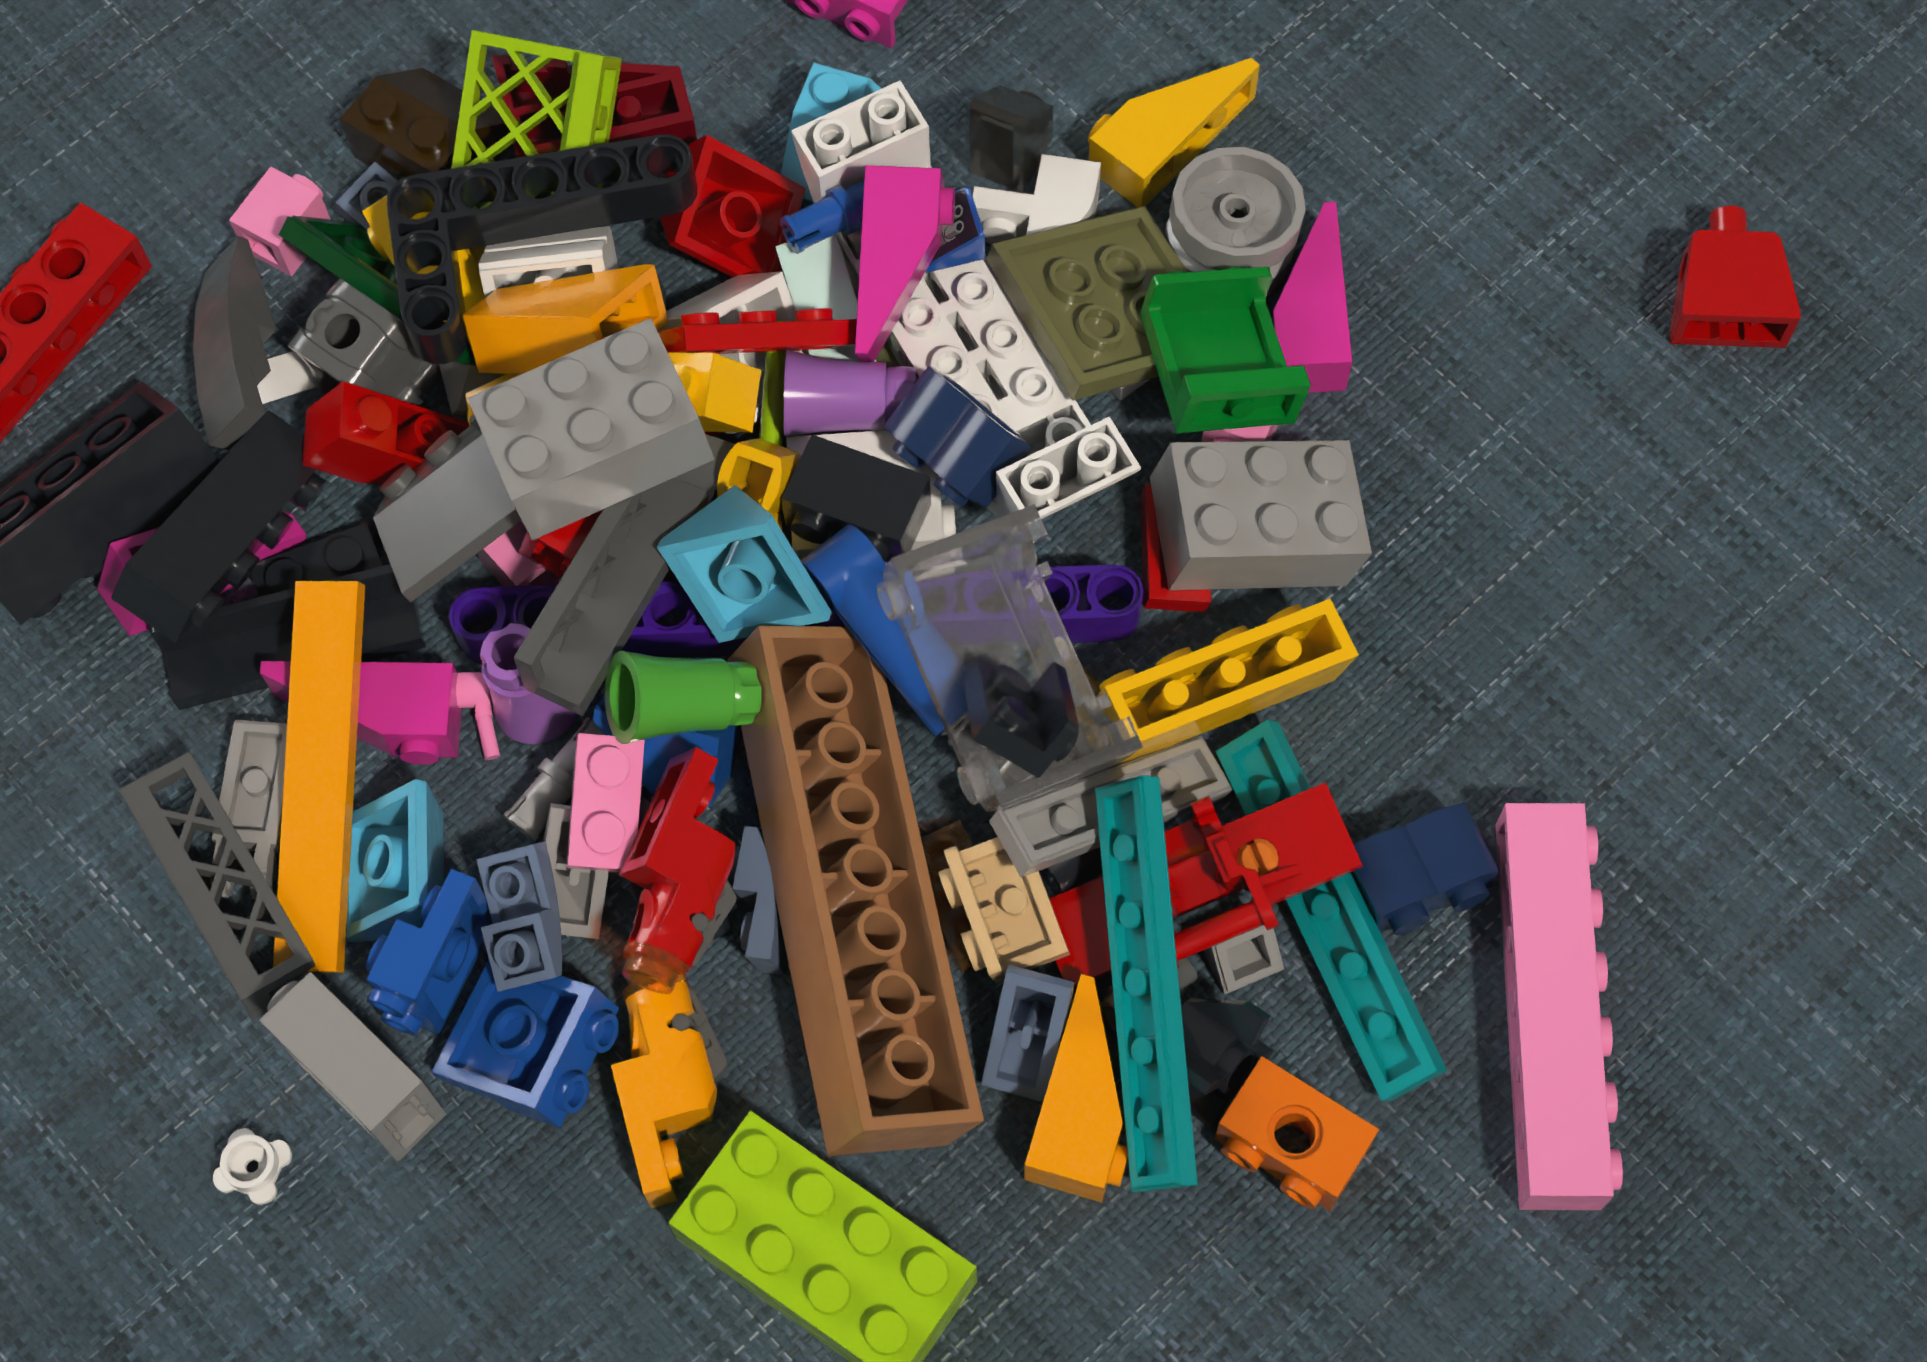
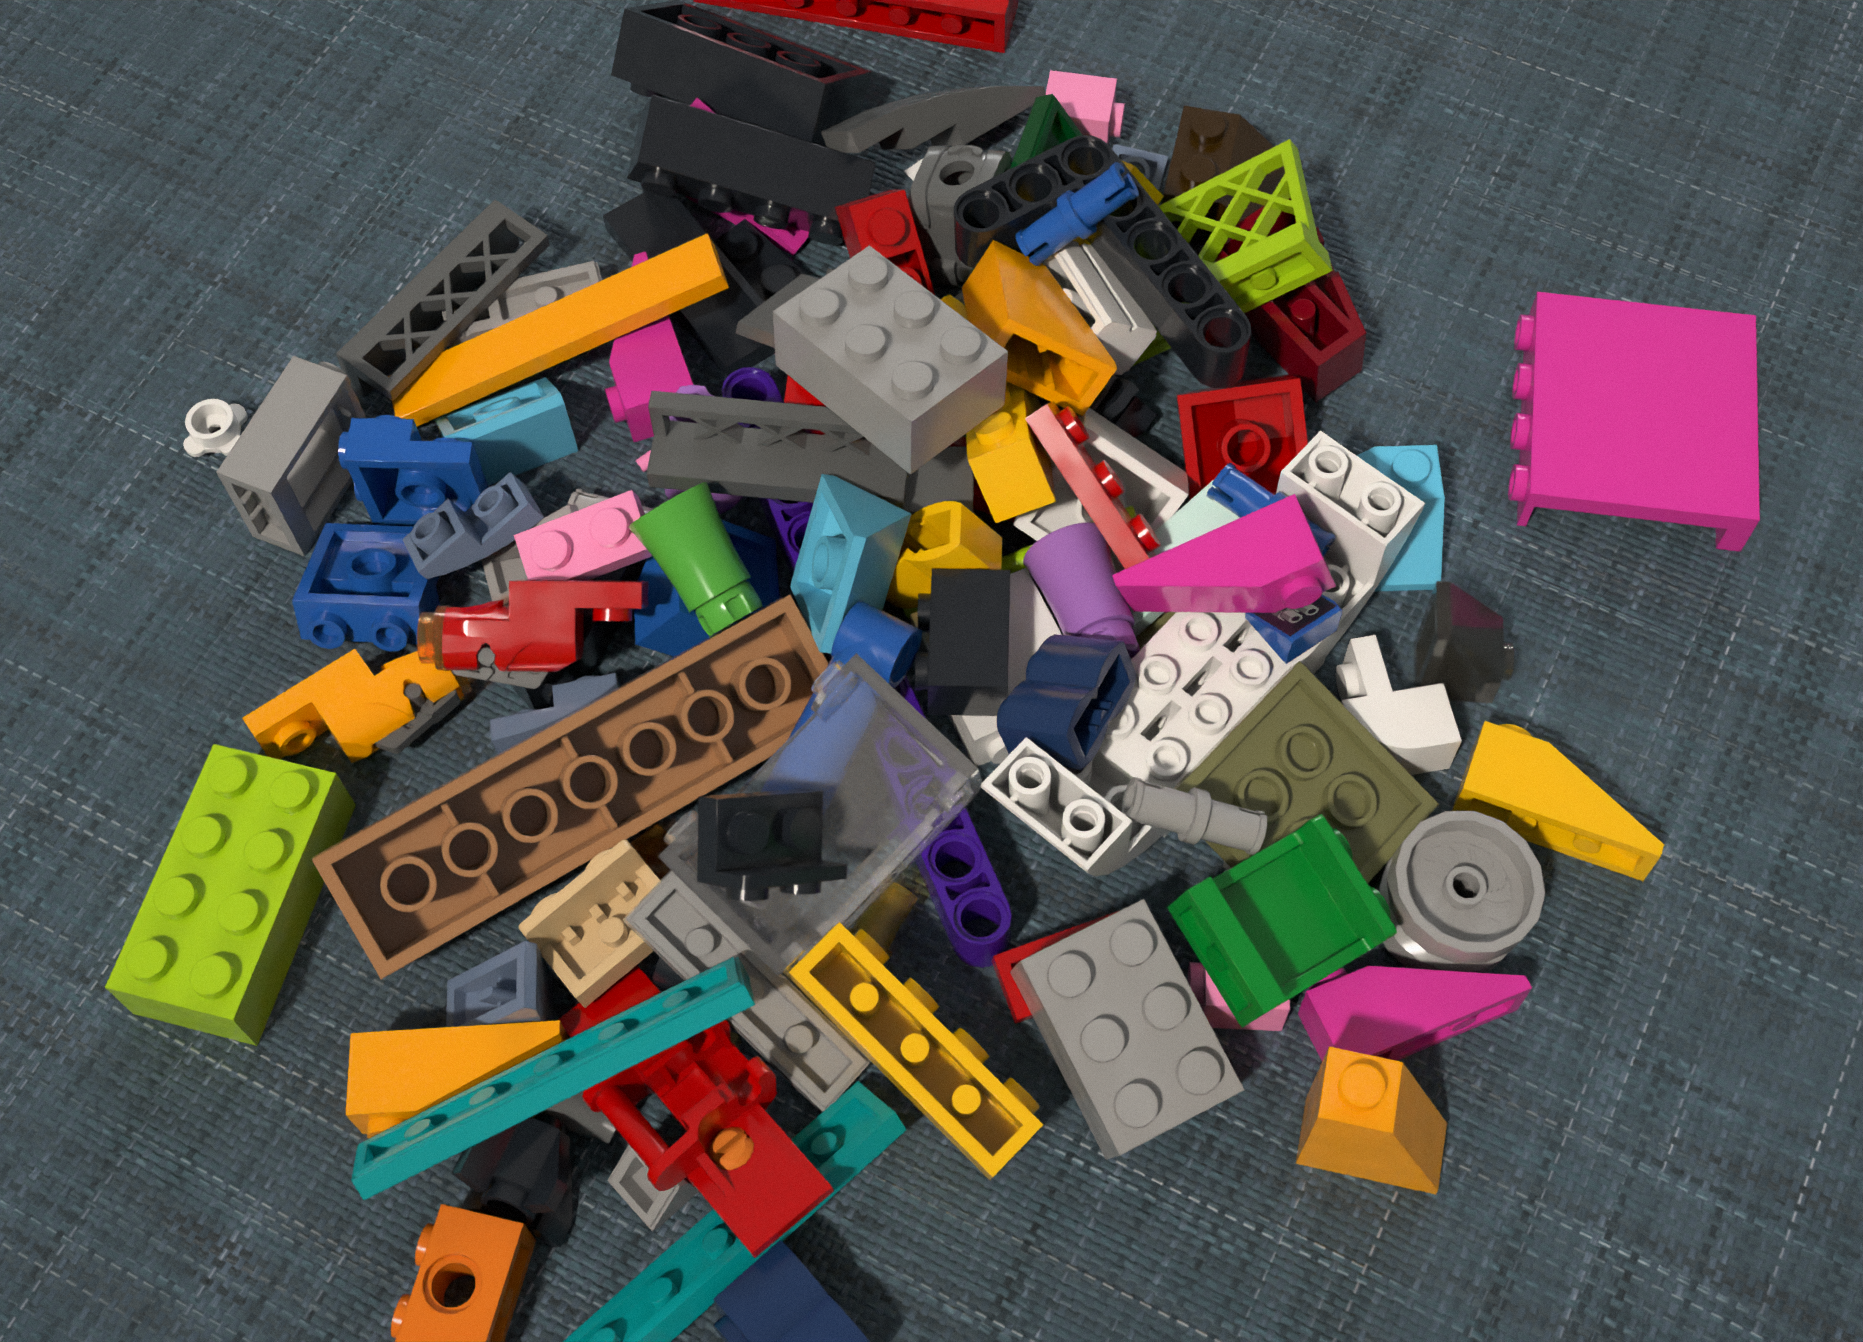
camera: 70 degrees right, 5 degrees down
(481, 229) = (1077, 214): none -> blue pin
(1112, 374) = (1194, 816): none -> light grey pin
(1401, 370) = (1372, 1123): none -> light orange slope

